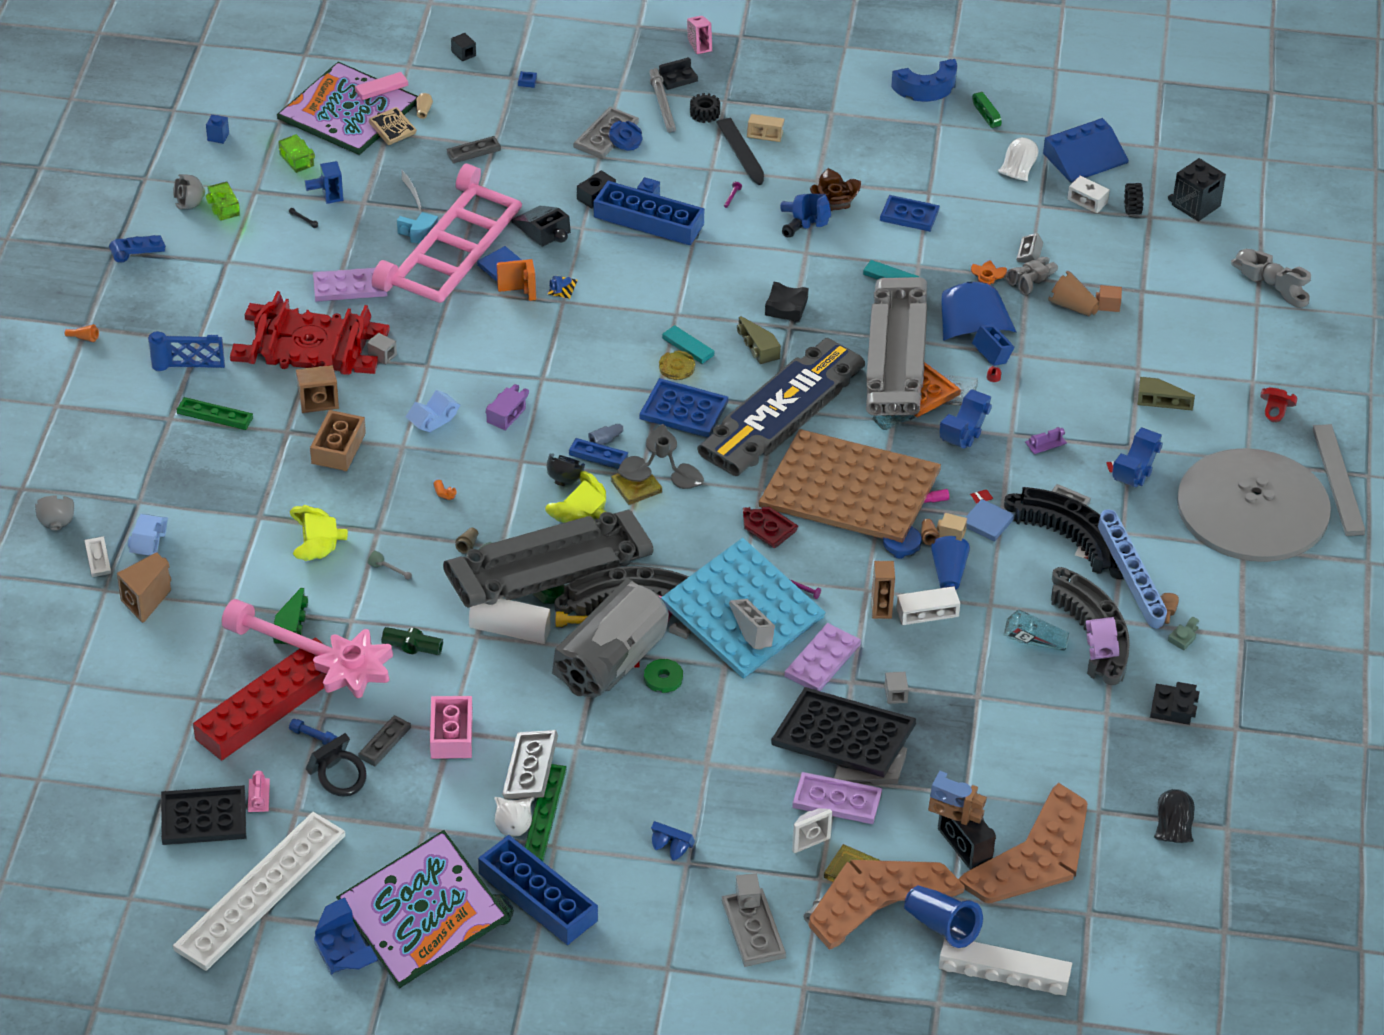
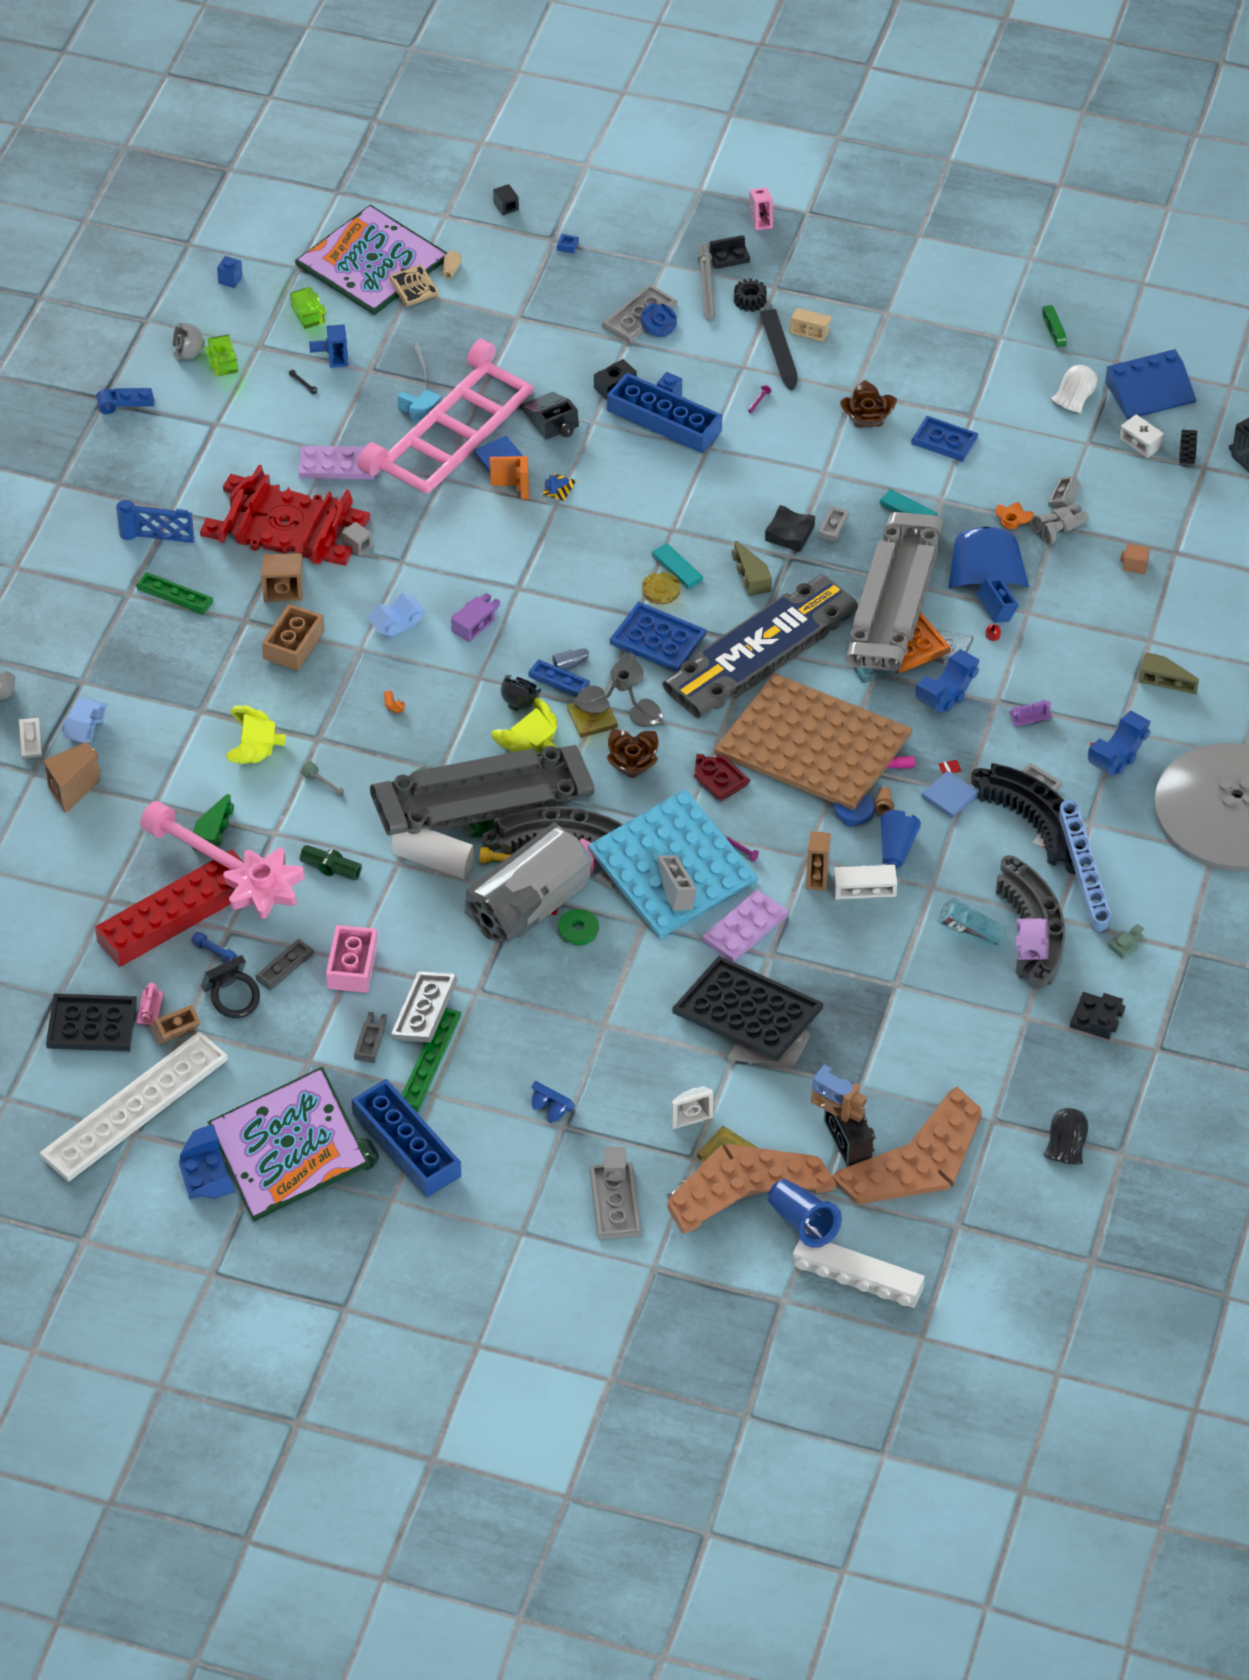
camera: 10 degrees right, 5 degrees up
(87, 333) = (60, 491): orange cone -> none
(288, 807) = (175, 1025): none -> medium nougat brick
(381, 85) = (410, 237): bright pink tile -> none
(466, 540) = (405, 760): dark tan cone -> none
(473, 149) = (495, 320): dark grey tile -> none
(482, 801) = (370, 1039): none -> dark grey hinge
(513, 816) = (396, 1058): white piece -> none
(683, 513) = (632, 754): none -> reddish brown brick
(789, 229) = (811, 445): black pin -> none
(809, 209) = (835, 425): blue piece -> none
(825, 294) = (833, 524): none -> light grey plate
(843, 797) = (727, 1076): lavender plate -> none
(896, 687) = (812, 966): light grey brick -> none
(926, 87) = (996, 293): blue brick -> none
(952, 526) = (909, 799): tan brick -> none
(1074, 295) = (1097, 552): medium nougat cone -> none
(1171, 603) = (1118, 907): medium nougat piece -> none

